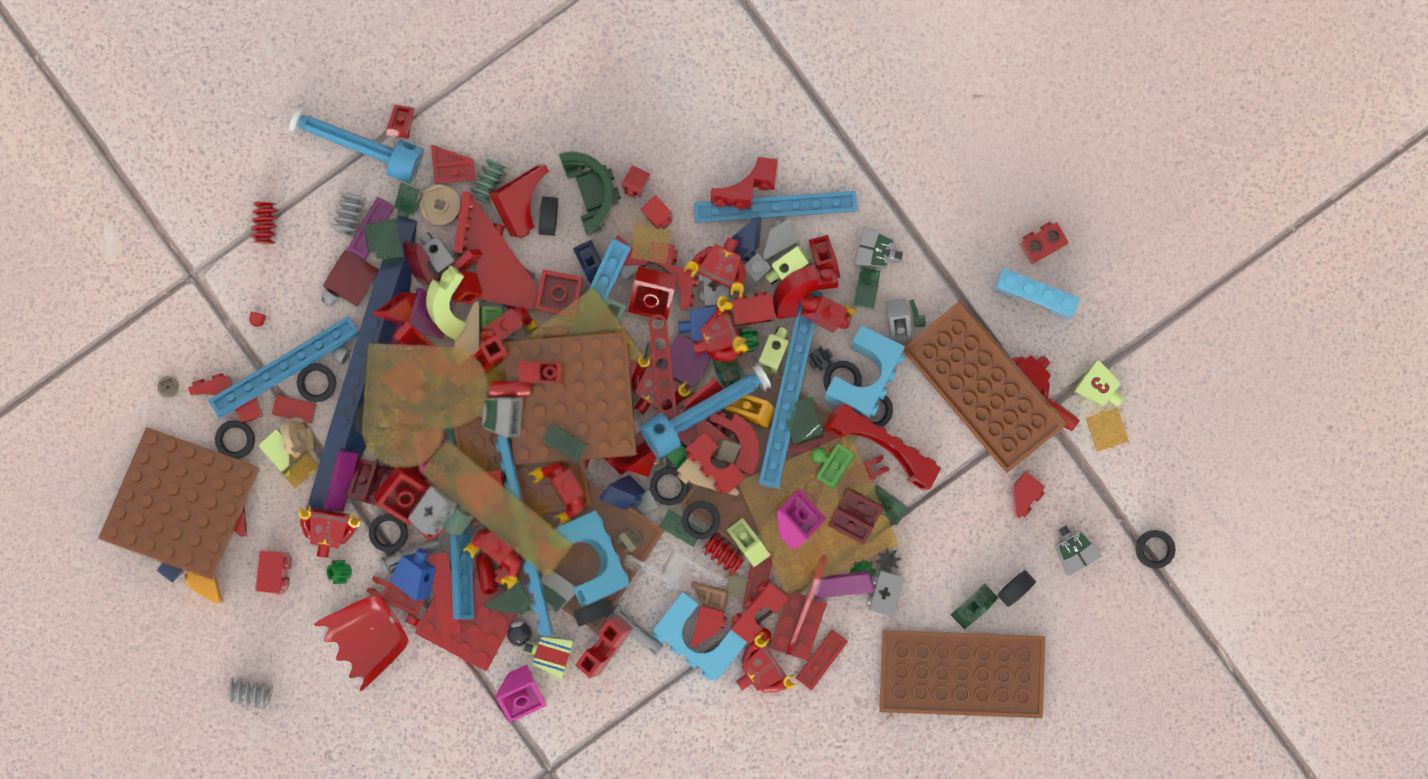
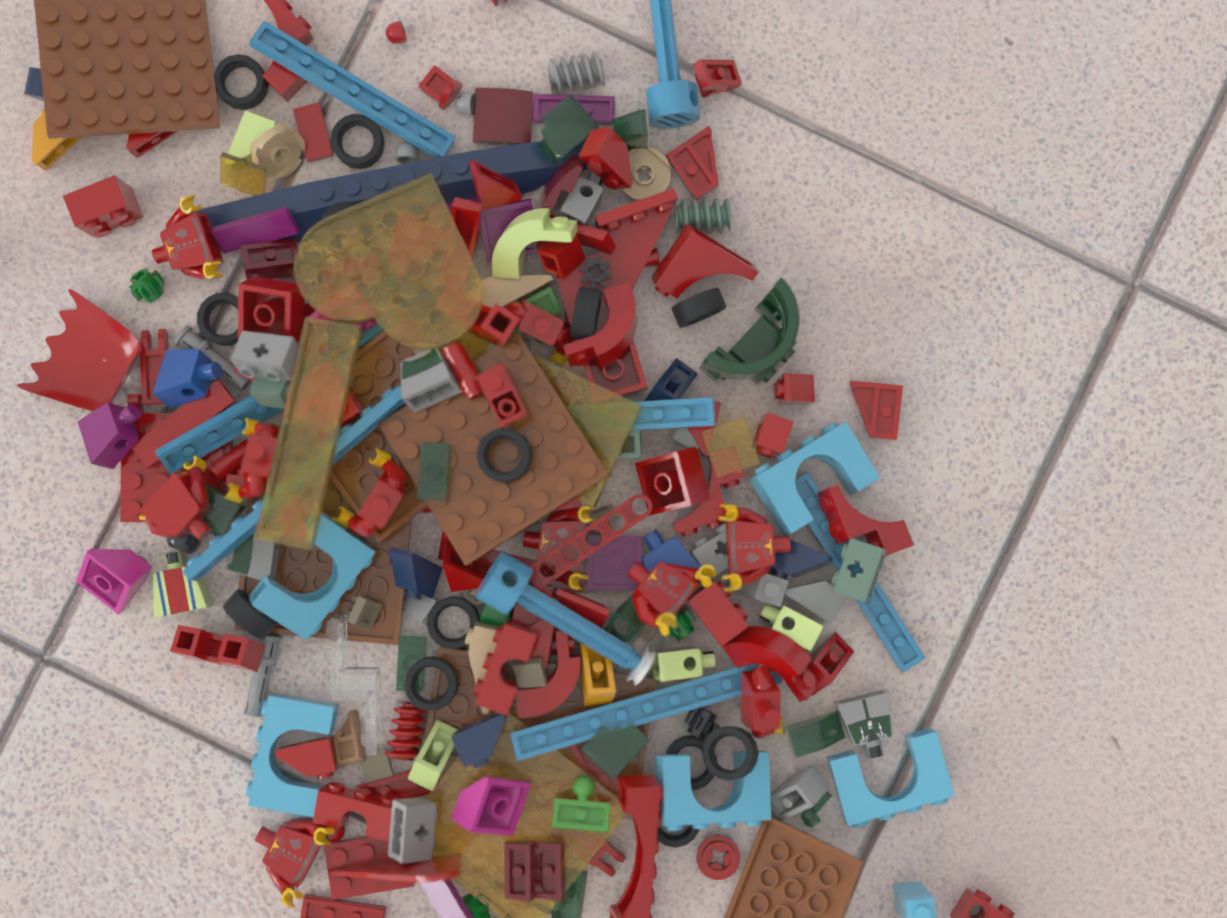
camera: 65 degrees right, 0 degrees up
(308, 308) = (440, 87): none -> red tile
(418, 223) = (608, 158): none -> red slope
(425, 644) = (109, 433): none -> magenta torso
(489, 265) = (602, 268): none -> black gear
(498, 620) = (179, 504): none -> red torso
(514, 291) = (586, 312): none -> black tyre
(538, 279) = (614, 336): none -> red arch
(563, 391) = (483, 452): none -> black tyre
(676, 133) = (878, 407): none -> red wing
(689, 226) = (777, 482): none -> medium azure arch
(753, 506) = (478, 740): none -> dark blue slope
(784, 205) = (870, 560): none -> sand green brick
(787, 579) = (412, 830): none -> light grey brick
(831, 349) = (709, 756): none -> black tyre
(920, 387) = (713, 869): none -> red gear
(937, 231) = (928, 783): none -> medium azure arch

